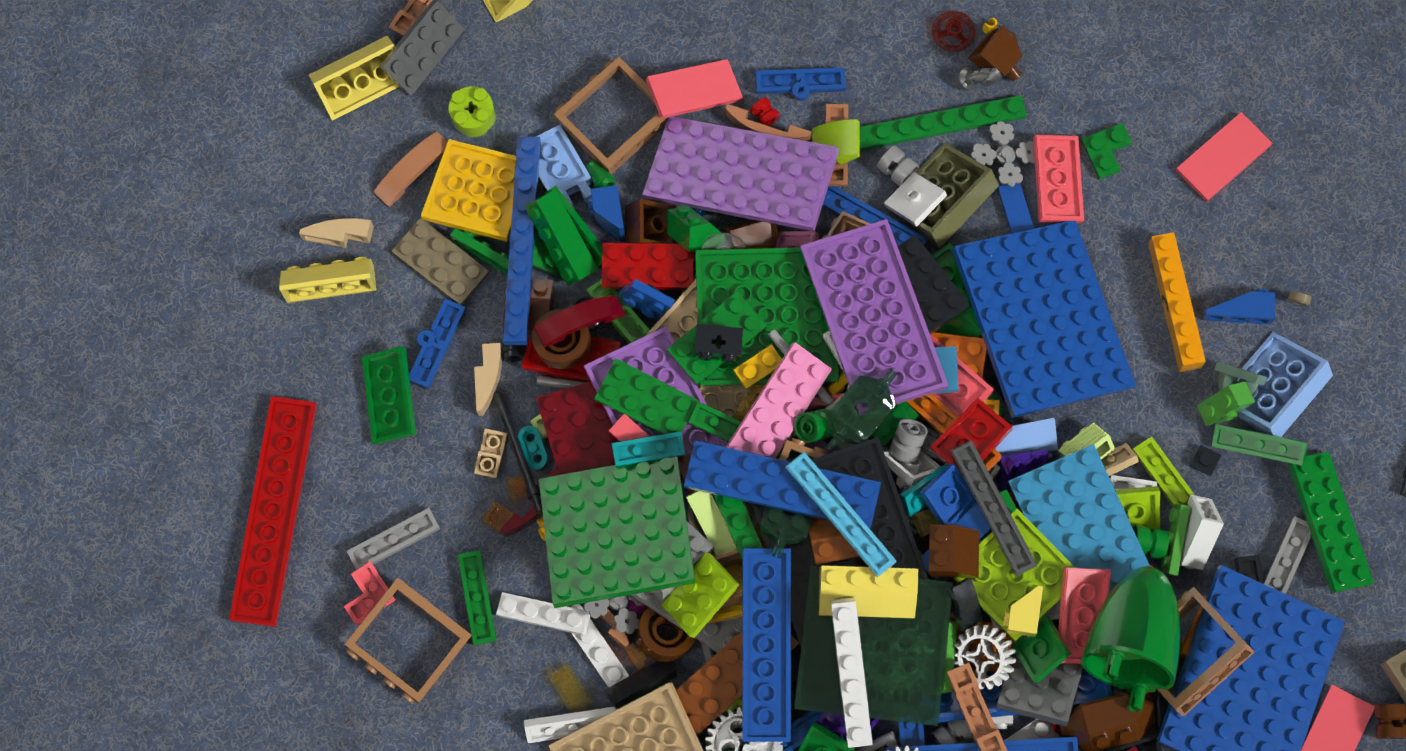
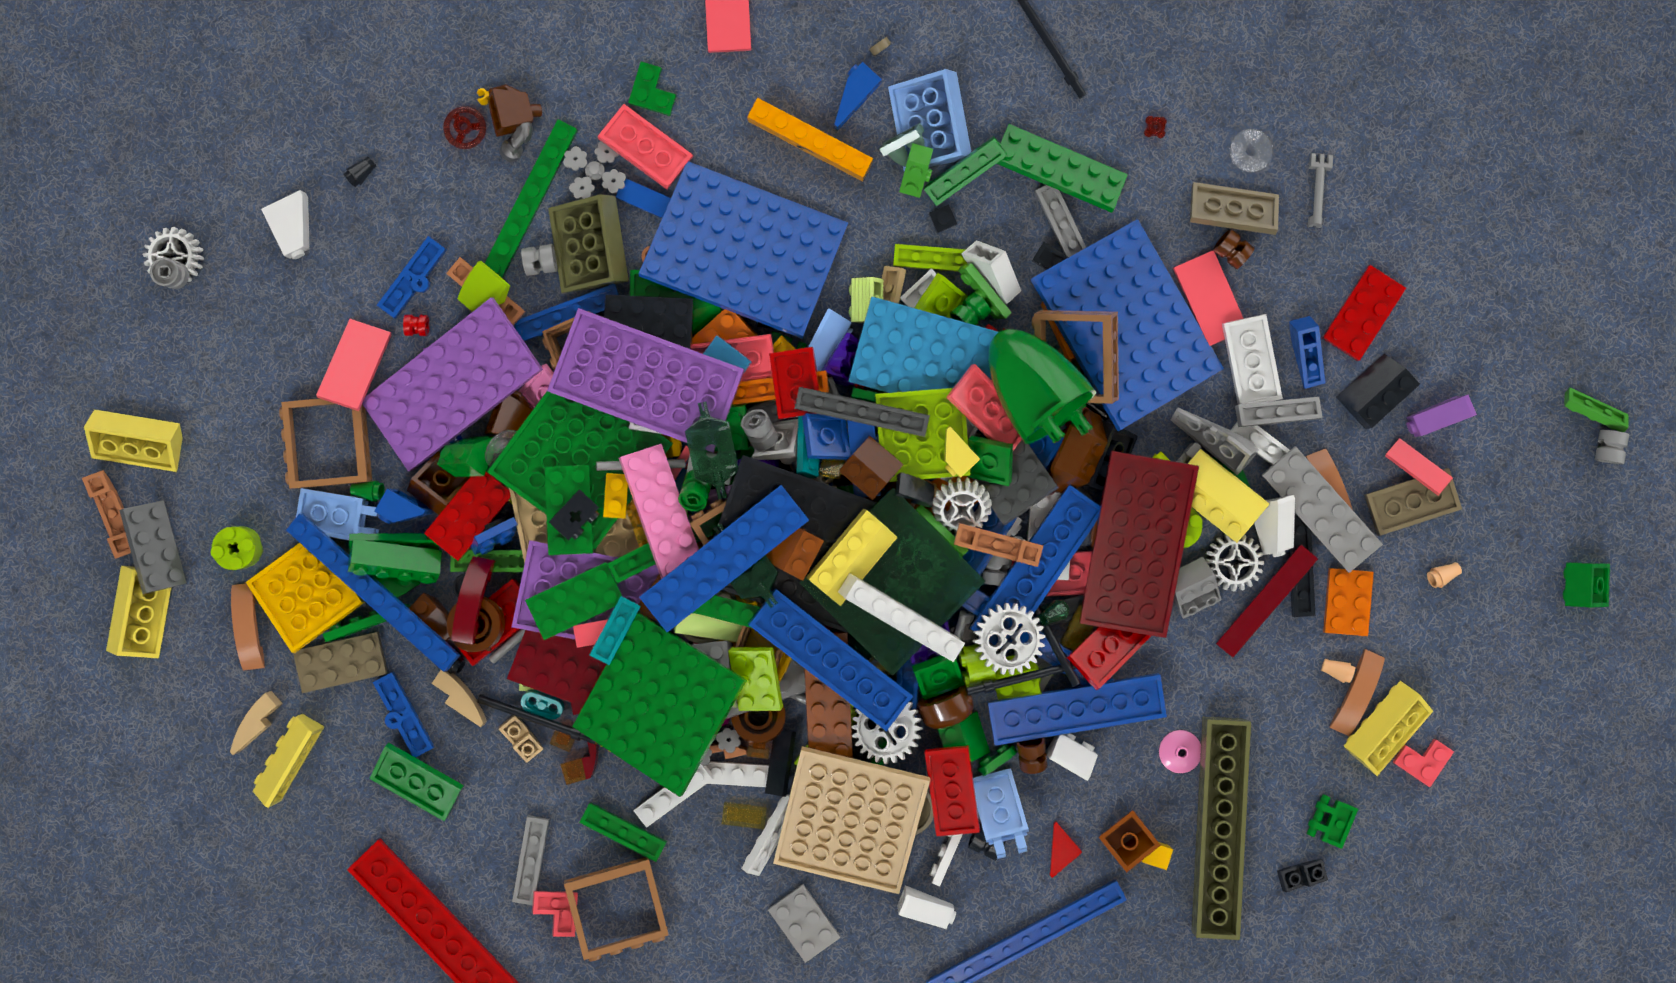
camera: 60 degrees left, 15 degrees up
(740, 118) = (405, 346): nougat slope -> none
(841, 514) = (782, 535): medium azure tile -> none
(915, 199) = (576, 268): white plate -> none

